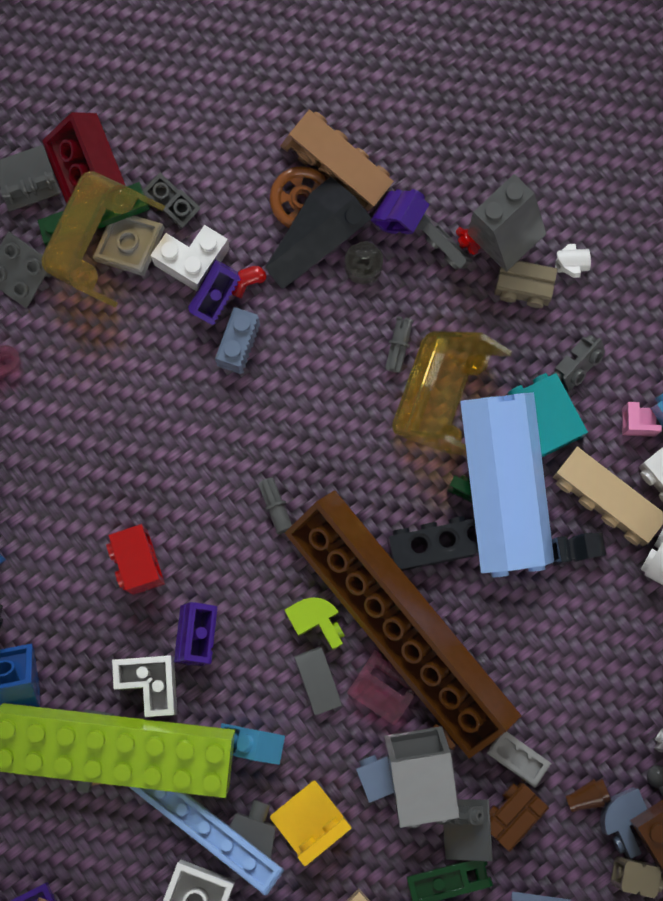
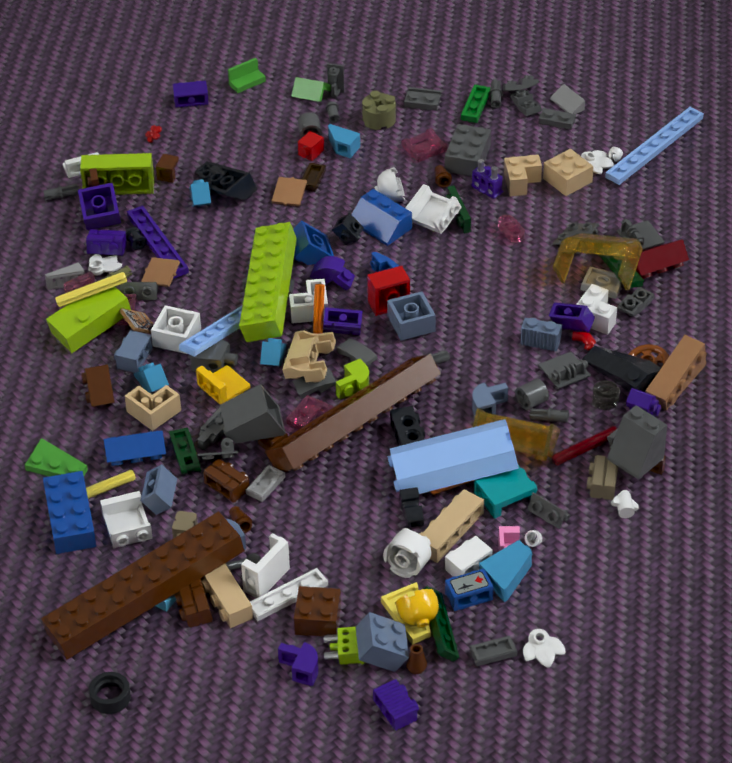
camera: 90 degrees right, 35 degrees down
(63, 569) = (381, 262): none -> blue slope
(79, 648) = (332, 269): none -> dark purple brick
(183, 670) = (318, 308): none -> orange axle
(190, 528) = (411, 315): none -> sand blue brick
(257, 615) = (356, 350): none -> dark grey slope
(272, 698) = (304, 353): none -> tan bracket
(305, 315) = (565, 370): none -> dark grey hinge
(363, 364) = (532, 394): none -> dark grey piece
(368, 436) = (487, 397): none -> sand blue brick
(410, 841) = (211, 430): none -> dark grey hinge
(453, 294) = (582, 446): none -> dark red axle
(637, 386) = (530, 536): none -> white hinge

